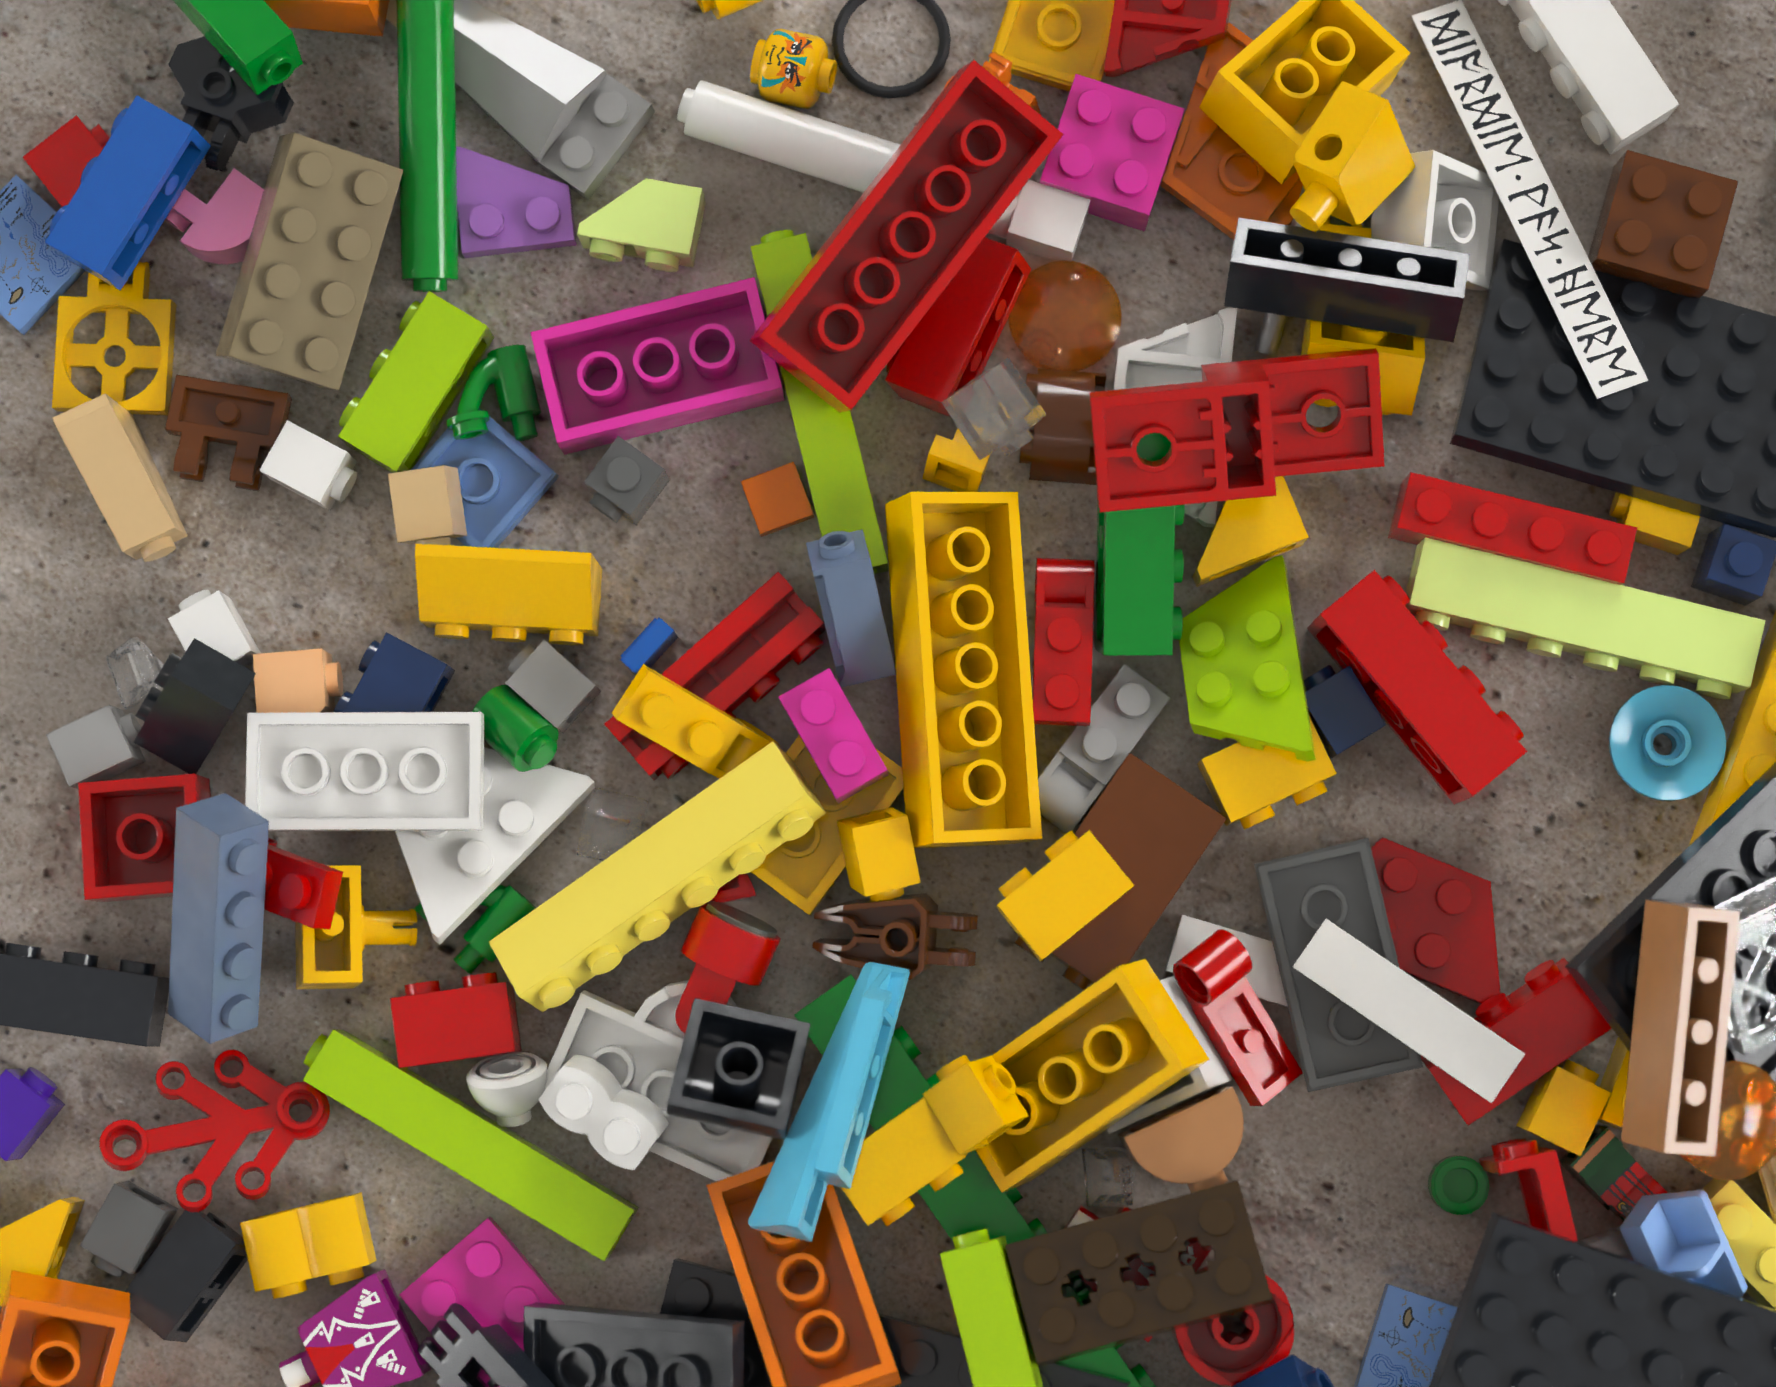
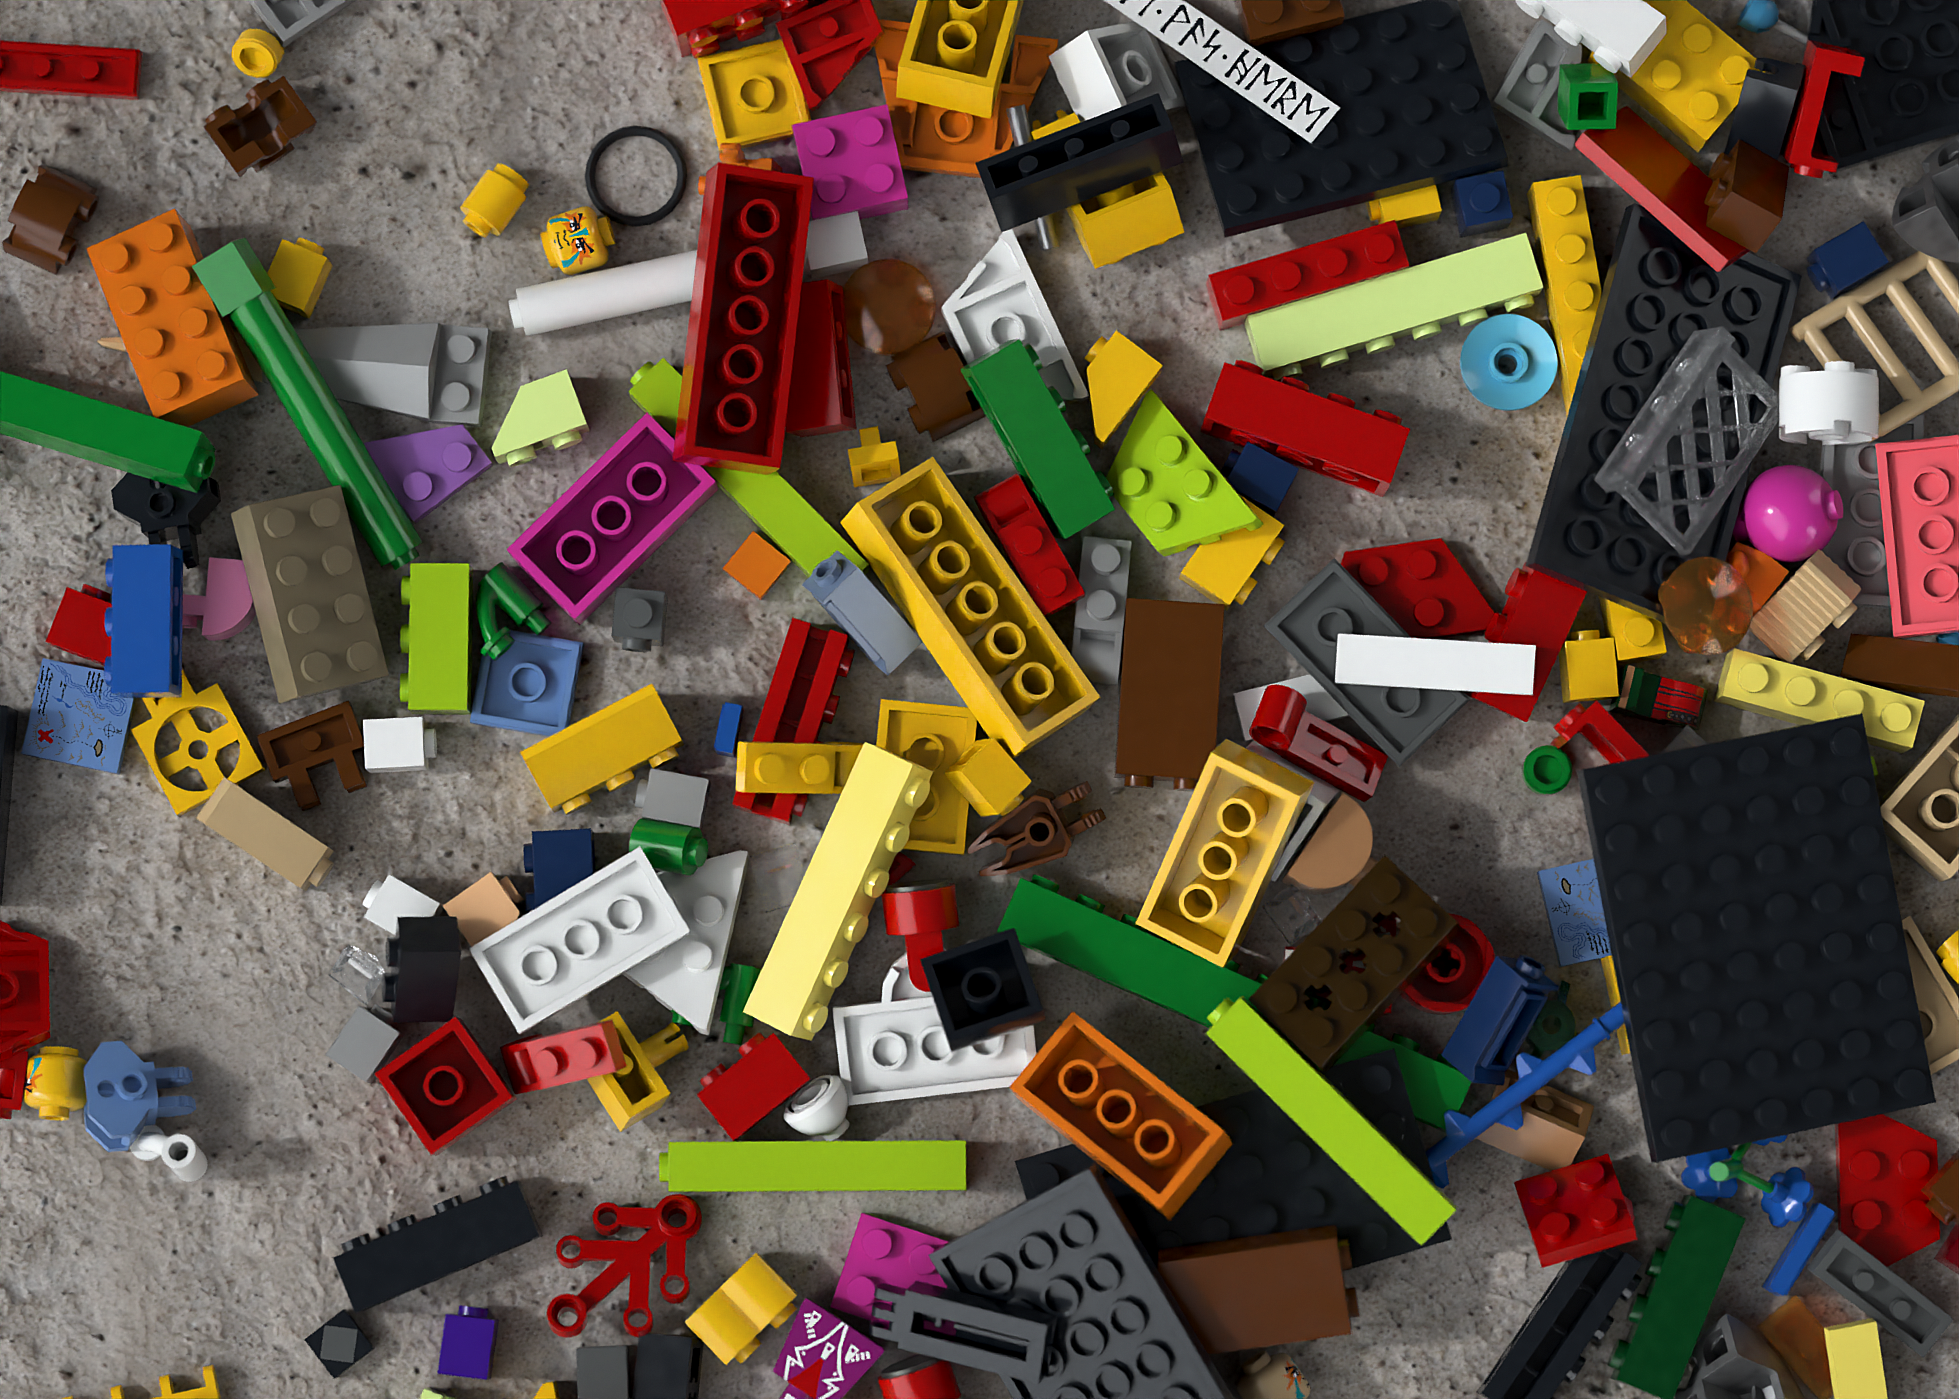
camera: 40 degrees left, 0 degrees up
(217, 917) = (538, 1108): sand blue brick -> none
(427, 505) = (505, 722): tan brick -> none
(616, 1120) = (917, 1082): white brick -> none
(833, 735) = (905, 712): dark pink brick -> none
(835, 1110) = (1068, 976): medium azure wedge -> none
(900, 1162) = (1136, 989): yellow brick -> none
(975, 1102) = (1166, 912): yellow brick -> none
(995, 410) = (881, 406): clear brick -> none
(1063, 894) = (1139, 728): yellow brick -> none
(1237, 429) = (1066, 318): red bracket -> none
(1350, 159) = (1031, 74): yellow torso -> none
(1680, 1028) = (1629, 560): medium nougat brick -> none
(1683, 1238) = (1725, 710): light blue panel -> none

